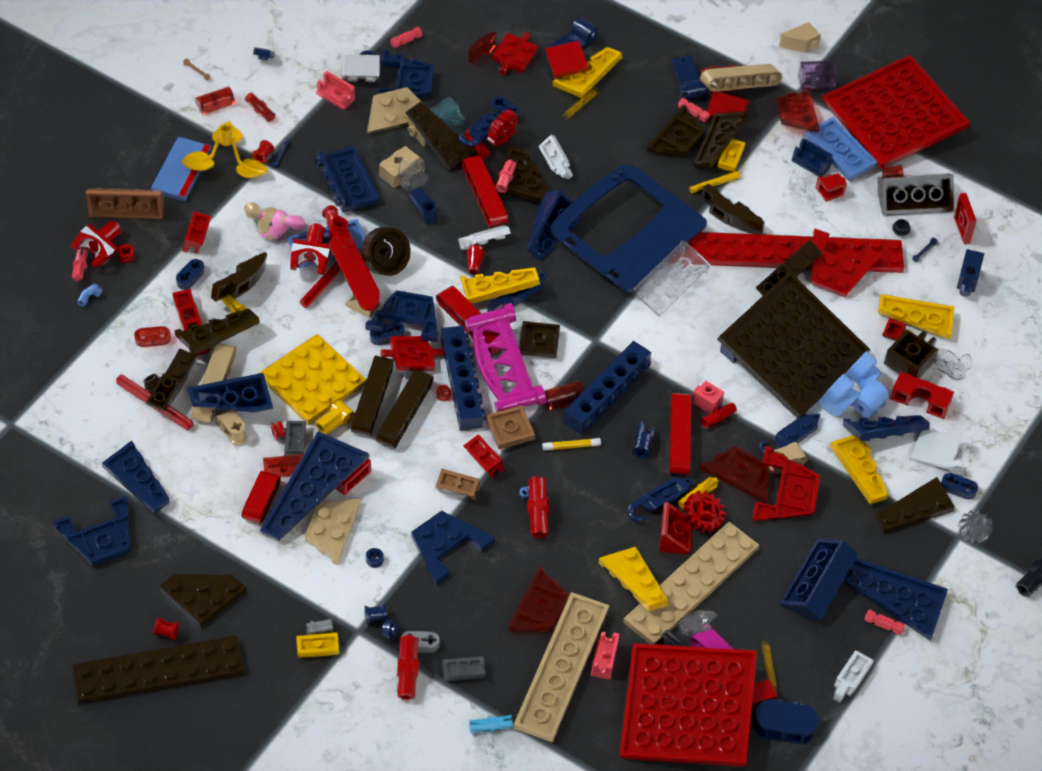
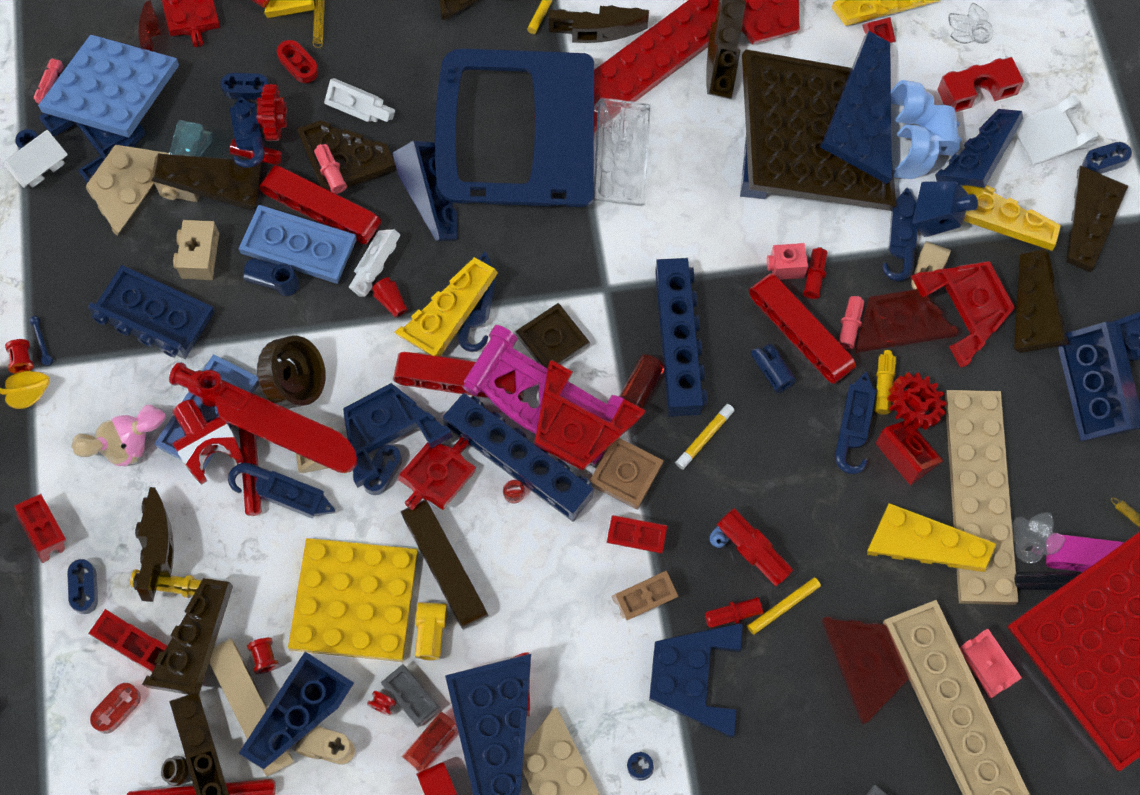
camera: 40 degrees left, 15 degrees up
(243, 366) = (263, 655): none -> red bush
(328, 304) = (283, 490): none -> dark blue plate
(336, 90) = (31, 211): coral hinge -> none
(404, 409) = (495, 550): dark brown beam -> none
(412, 171) = (222, 248): clear plate -> none
(434, 59) = (109, 85): none -> medium blue plate
(454, 201) = (299, 243): none -> medium blue plate
(496, 530) = (733, 612): none -> red axle
(499, 382) = (573, 431): none -> red wing
(526, 549) = (784, 606): none -> yellow bar
(545, 116) = (298, 63): none -> red plate
(711, 451) = (851, 322): none -> coral axle
(822, 521) = (1037, 312): none -> dark brown wing
(823, 432) = (941, 207): none -> dark blue torso
(828, 357) = (863, 114): none -> dark blue wing
(912, 354) = (930, 47): dark brown hinge -> none

